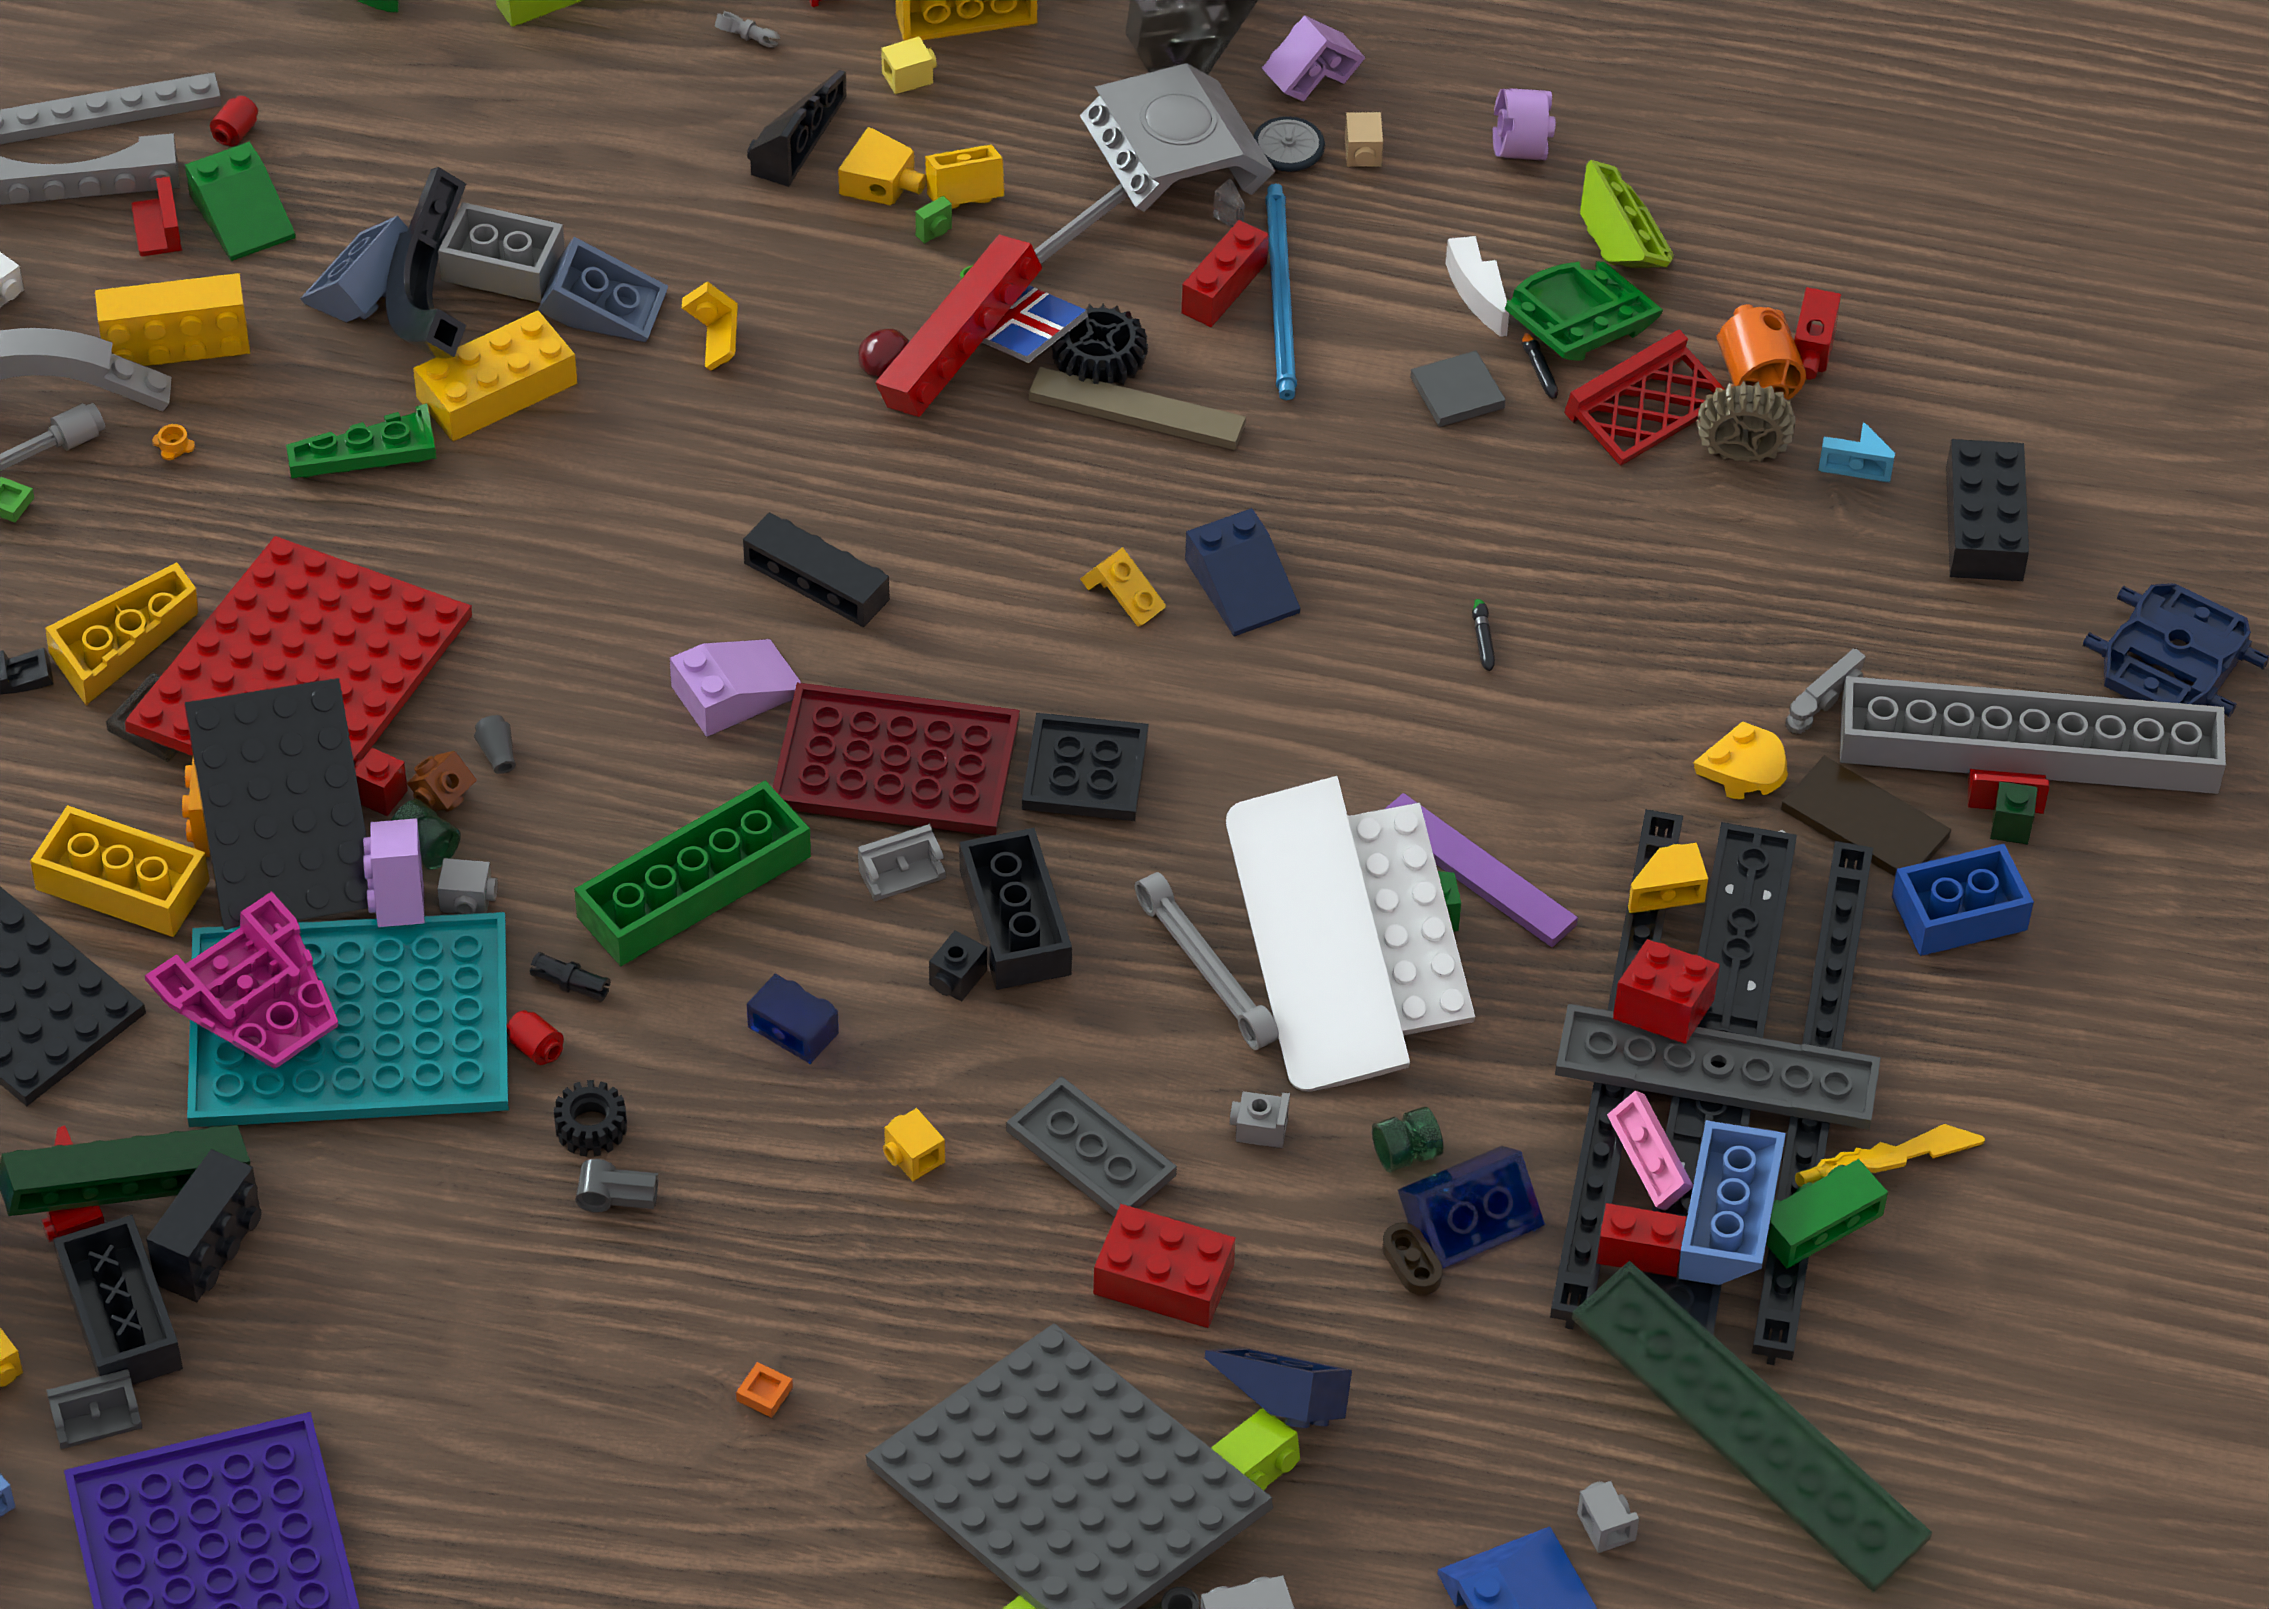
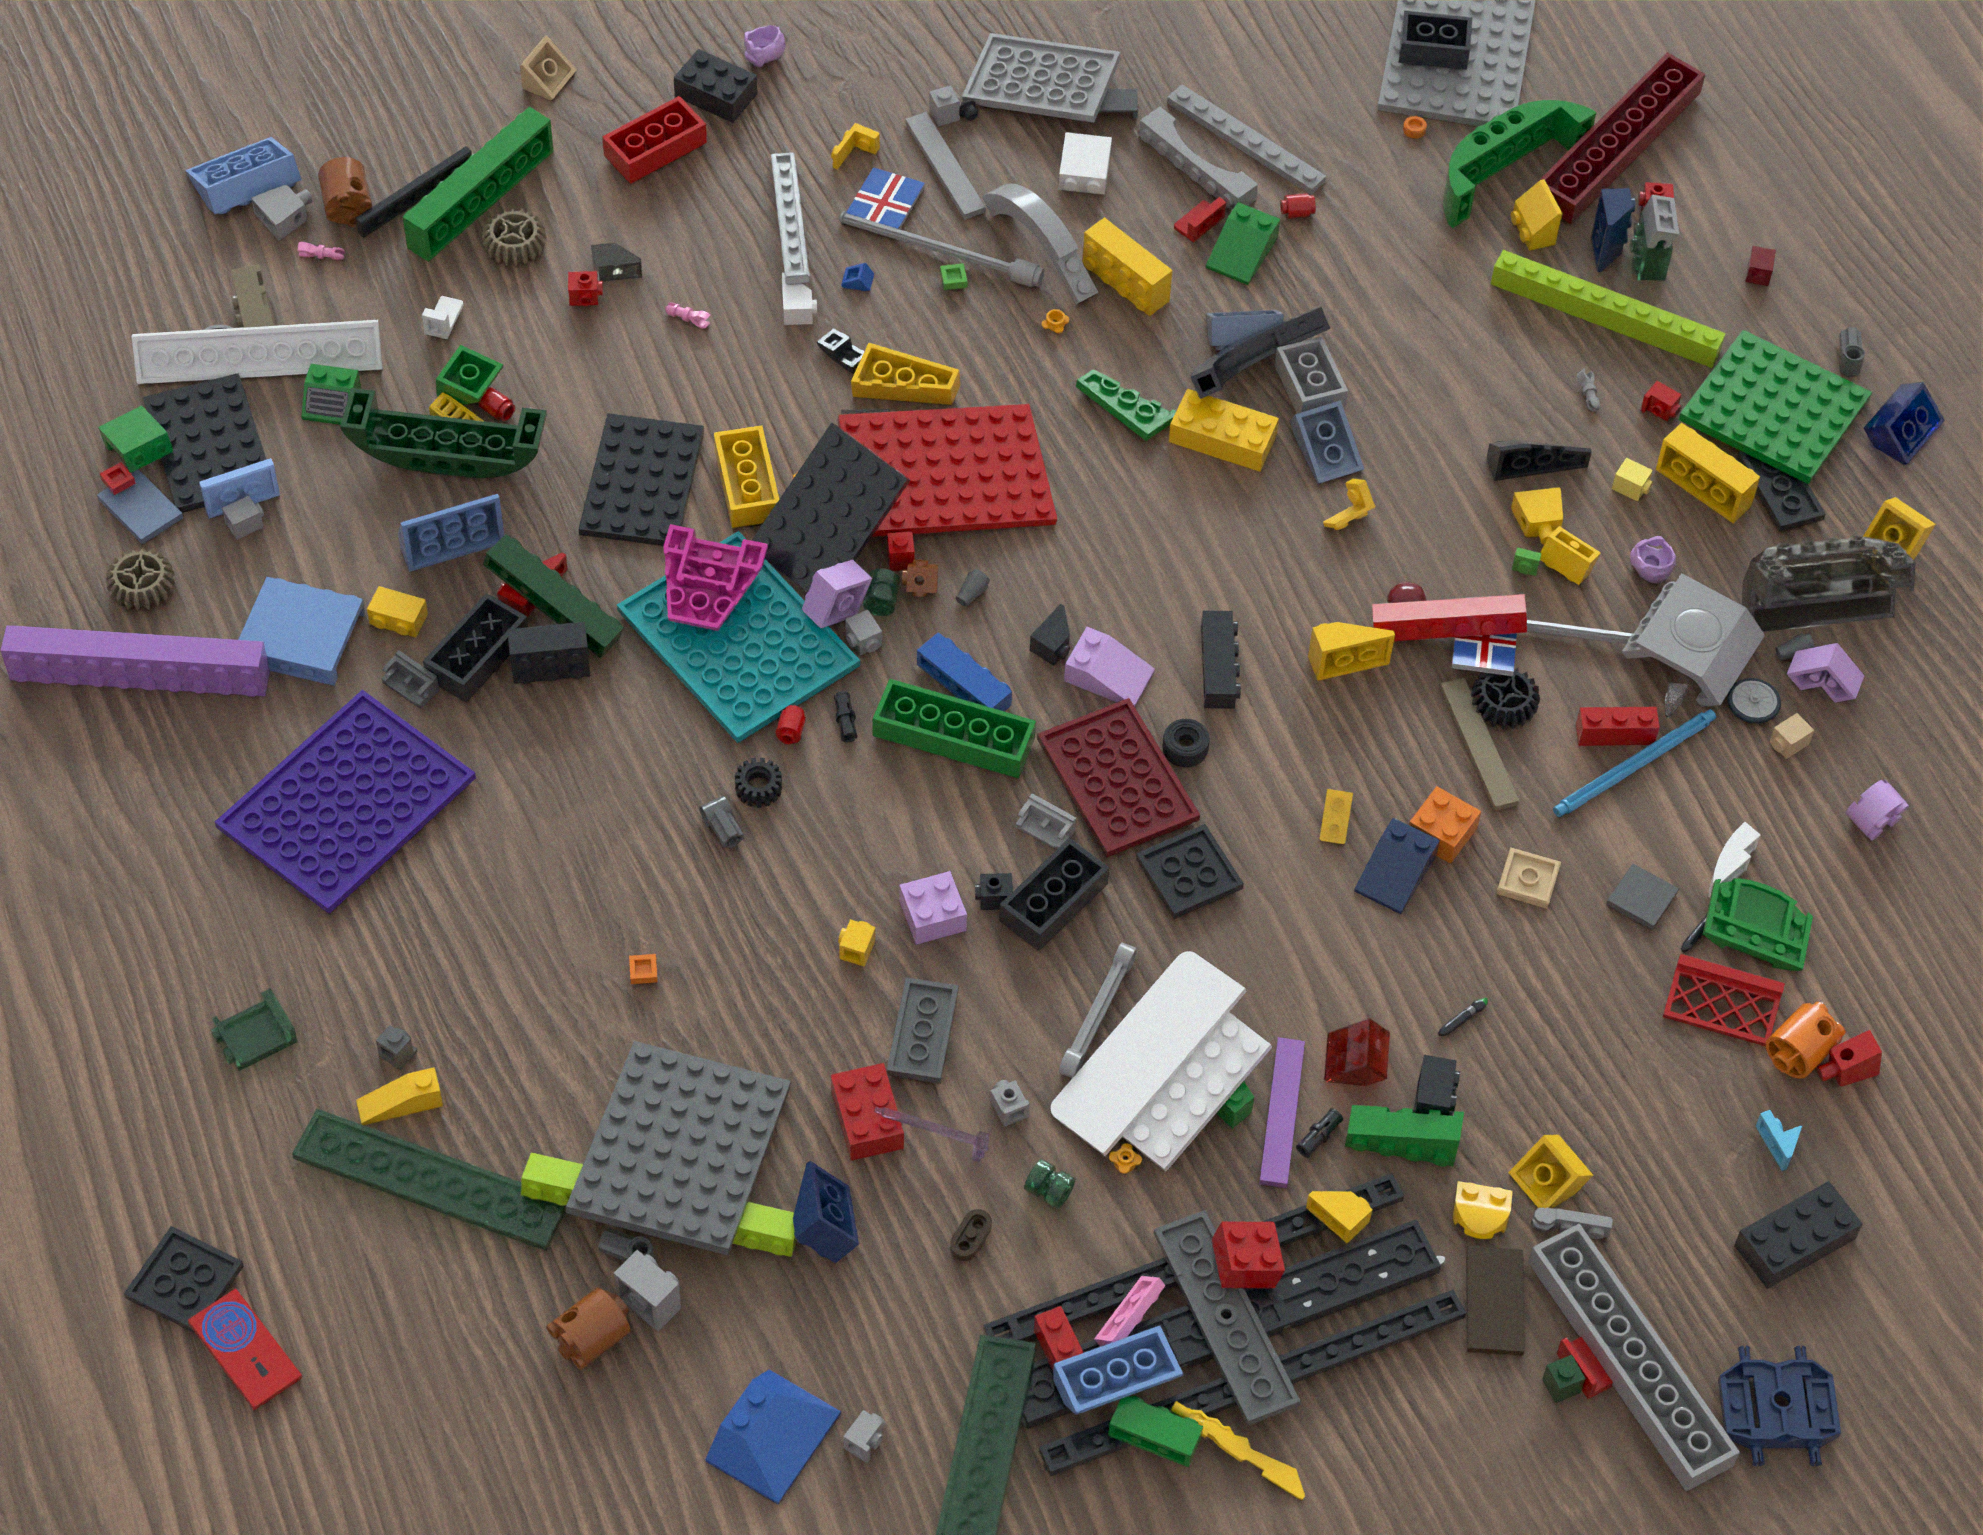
camera: 55 degrees right, 5 degrees up
(620, 821) = (962, 674): none -> blue brick
(643, 705) = (1052, 637): none -> black slope
(793, 1018) = (897, 834): clear blue brick -> none
(904, 649) = (1190, 730): none -> black tyre
(915, 441) = (1348, 648): none -> yellow slope
(930, 1039) = (933, 907): none -> lavender brick
(1039, 113) = (1653, 563): none -> lavender hair
(1222, 489) = (1447, 820): none -> orange brick
(1250, 67) = (1798, 643): none -> dark grey cone
(1292, 1178) = (980, 1141): none -> clear purple piece
(1350, 471) = (1528, 878): none -> tan tile
(1428, 1059) = (1122, 1165): none -> light orange plate
(1460, 755) = (1357, 1054): none -> clear red slope
(1473, 1205) = (1029, 1244): clear blue slope -> none
(1534, 849) = (1309, 1144): none -> black pin
(1576, 710) = (1437, 1086): none -> black brick
(1604, 766) = (1405, 1133): none -> green wedge
(1621, 220) = (1852, 908): lime wedge -> none
(1746, 422) = (1741, 1061): dark tan gear -> none
(1749, 674) = (1550, 1172): none -> yellow slope
(1962, 899) = (1467, 1384): blue brick -> none

